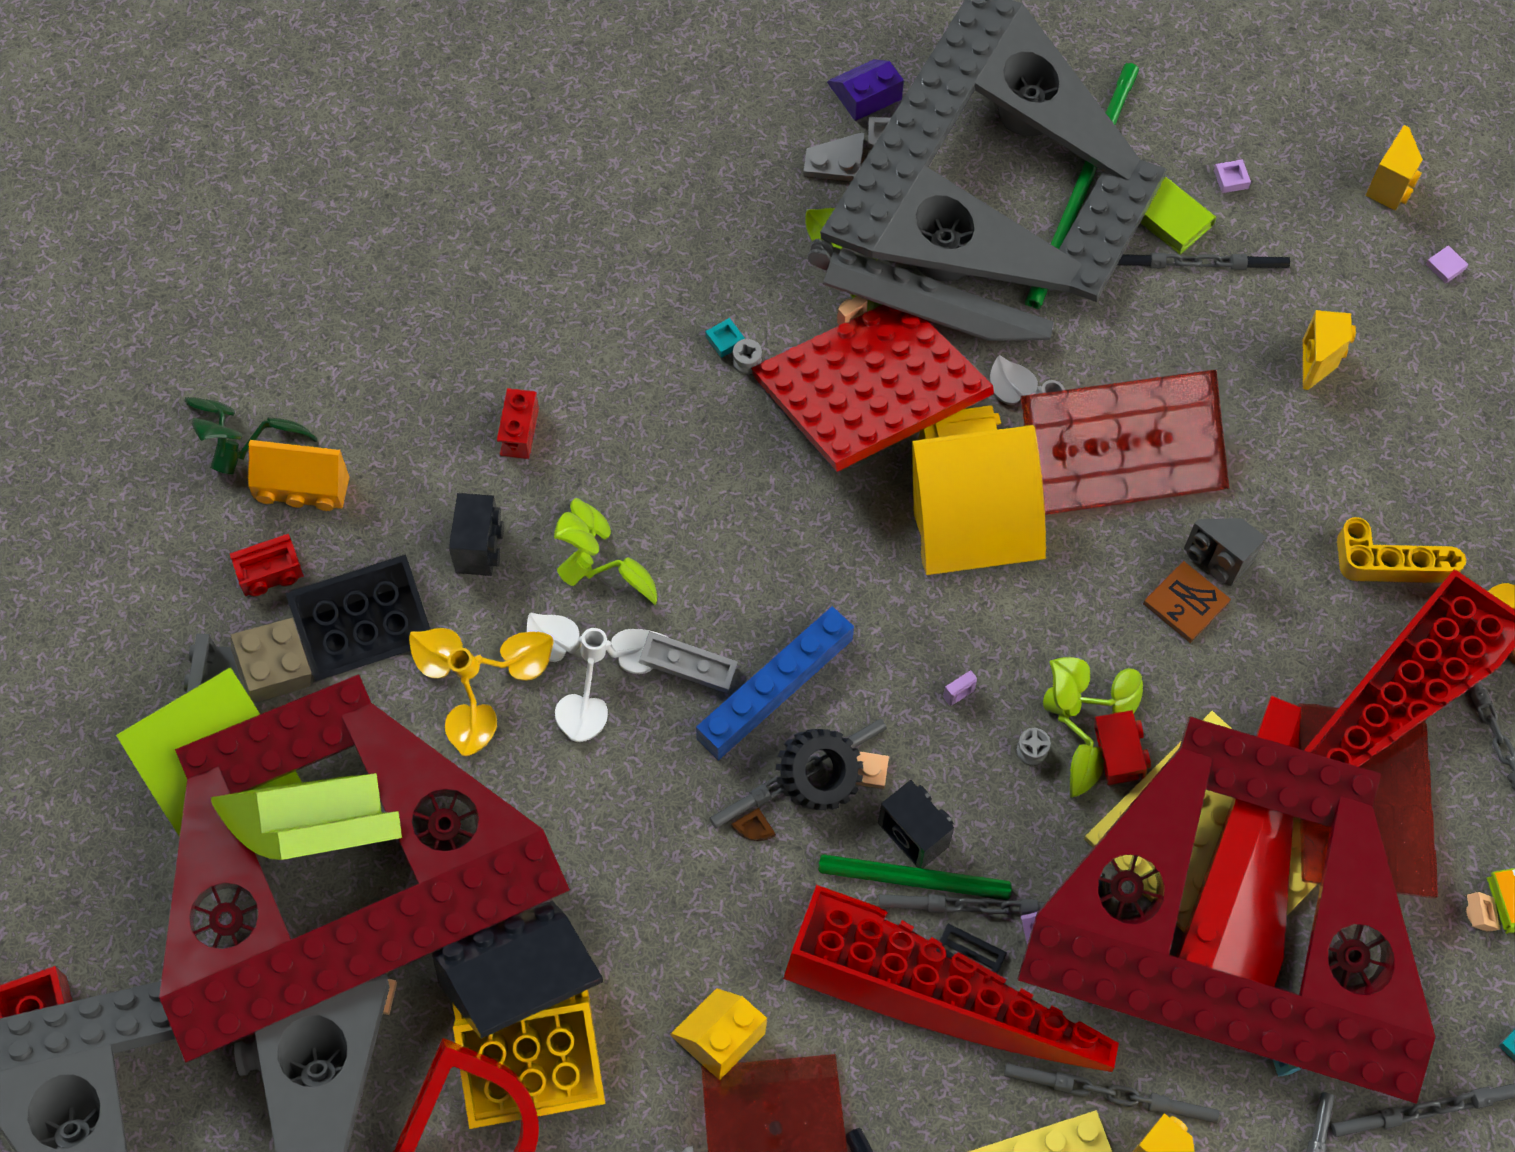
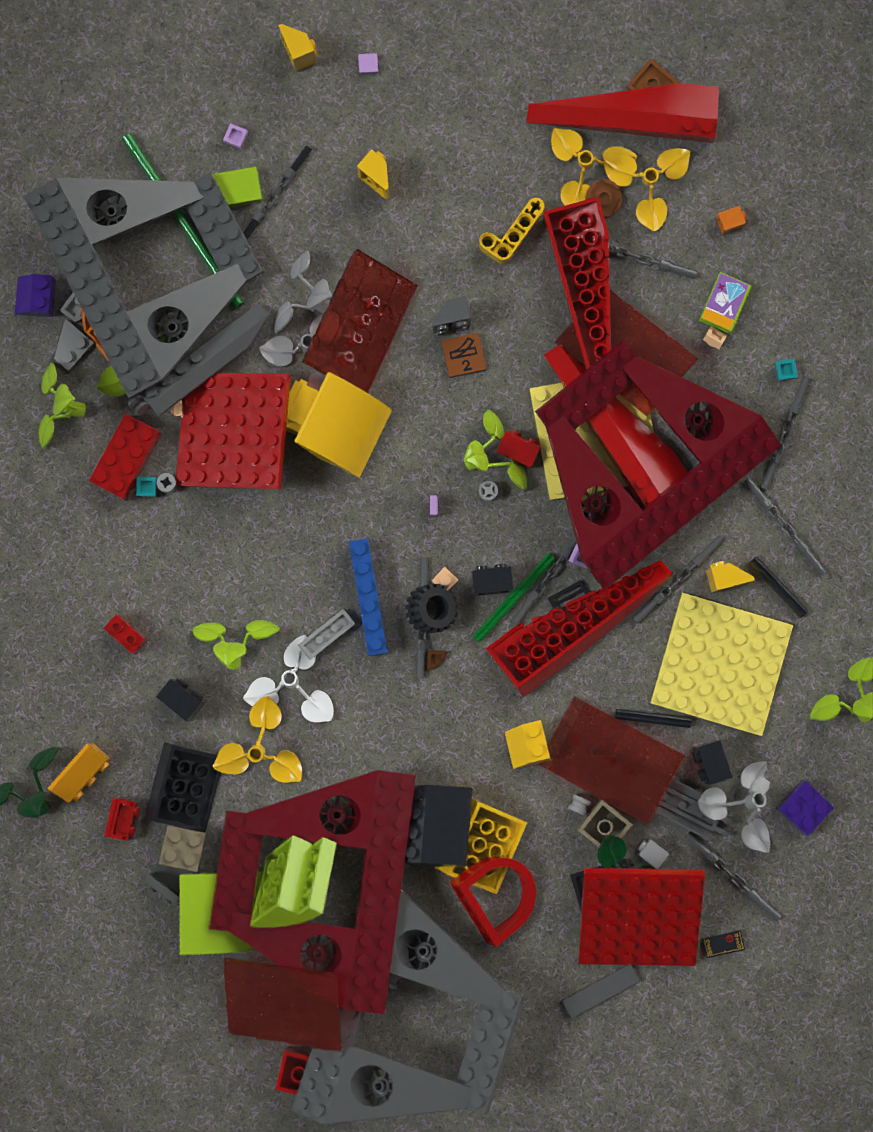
camera: 55 degrees left, 20 degrees up
(122, 917) = (283, 1004): none -> clear red piece
(745, 290) = (125, 457): none -> red brick
(761, 197) = (63, 402): none -> lime plant
(1124, 360) = (318, 299): none -> light grey plant

